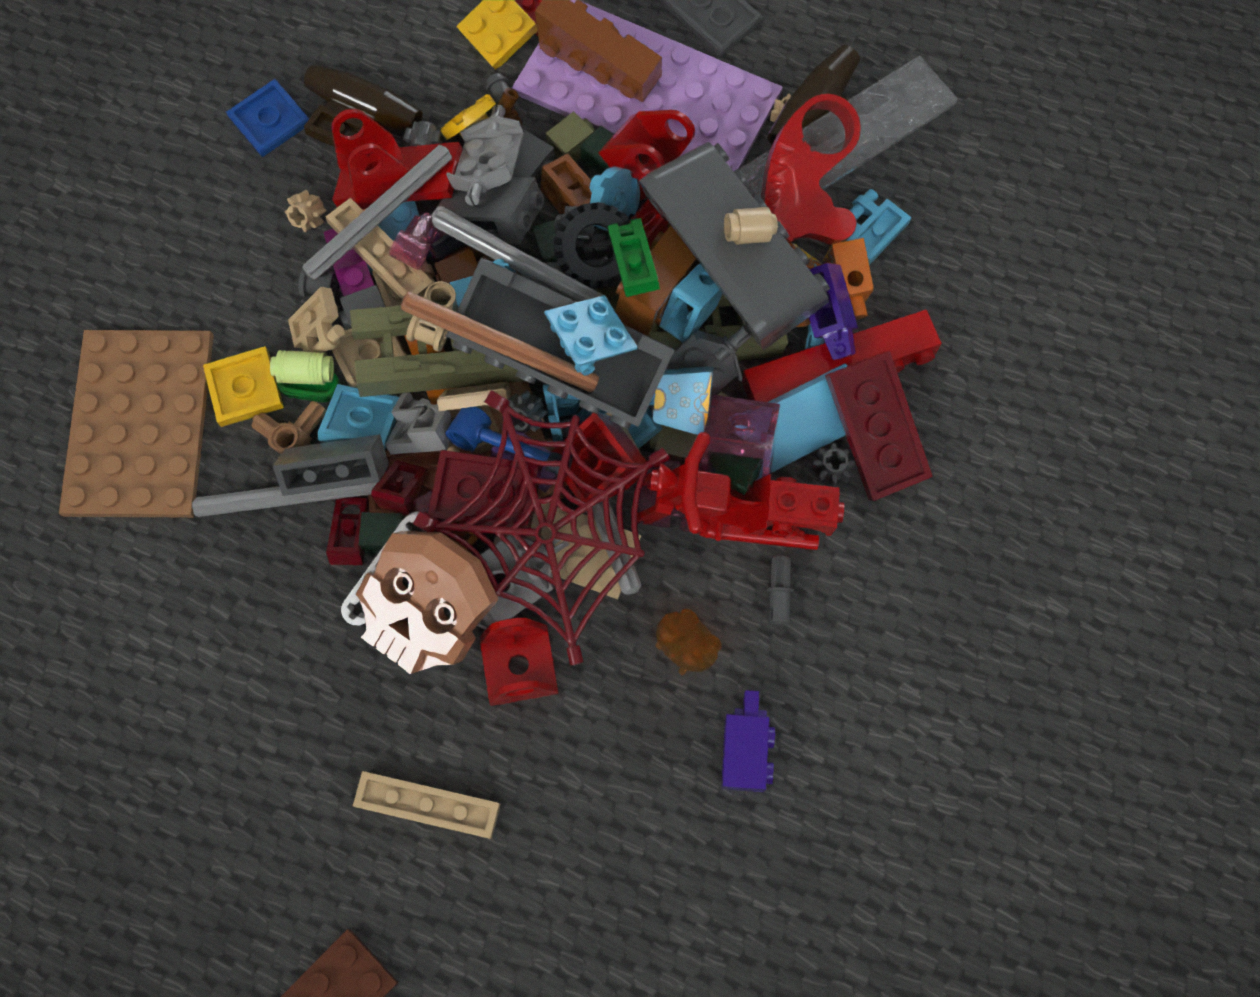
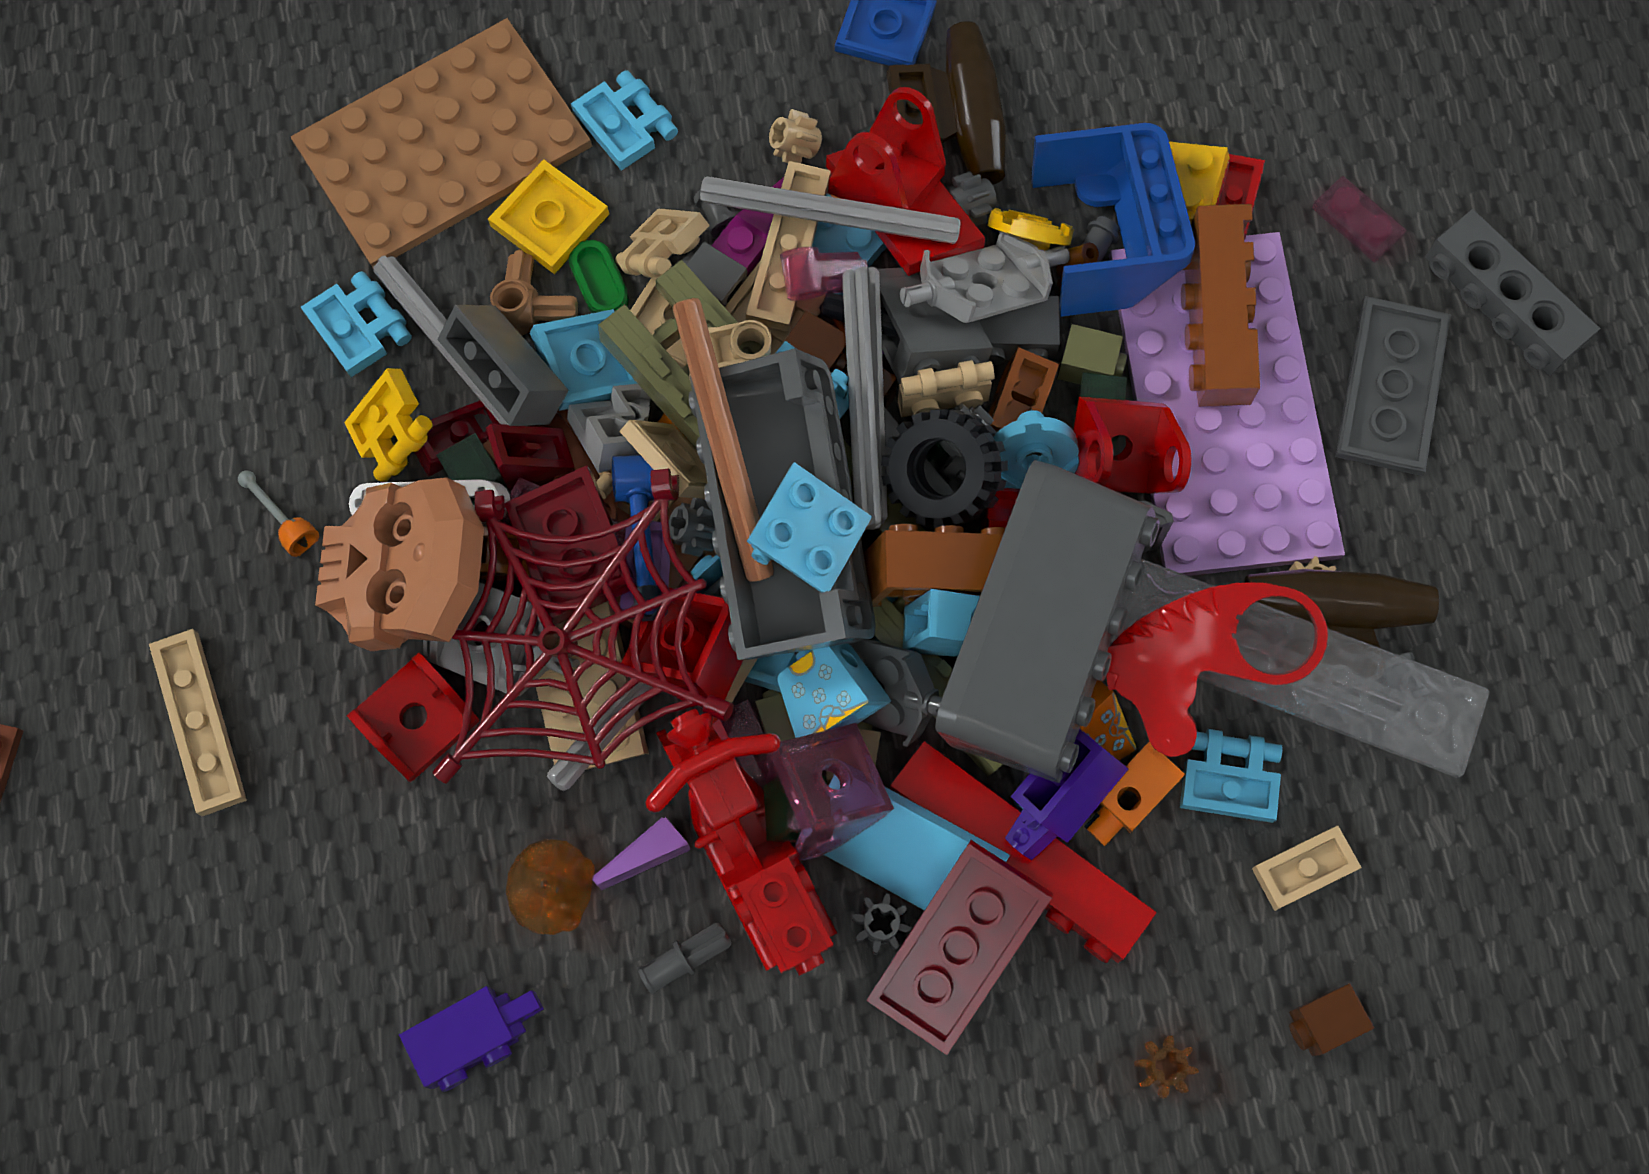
camera: 55 degrees right, 0 degrees up
(213, 310) = (615, 127): none -> medium azure plate
(224, 557) = (344, 329): none -> medium azure plate
(302, 367) = (604, 260): yellowish green head -> none
(304, 563) = (380, 416): none -> yellow plate
(339, 670) = (290, 530): none -> orange hinge
(502, 44) = (1138, 176): none -> blue windscreen
(539, 221) = (946, 388): none -> tan plate
(633, 258) = (934, 517): green plate -> none
(701, 564) = (652, 848): none -> medium lavender slope
(750, 225) = (1062, 624): tan brick -> none
(947, 221) = (1306, 868): none -> tan plate
(1010, 371) = (1156, 1076): none -> clear orange gear
(1040, 263) = (1329, 1021): none -> reddish brown brick

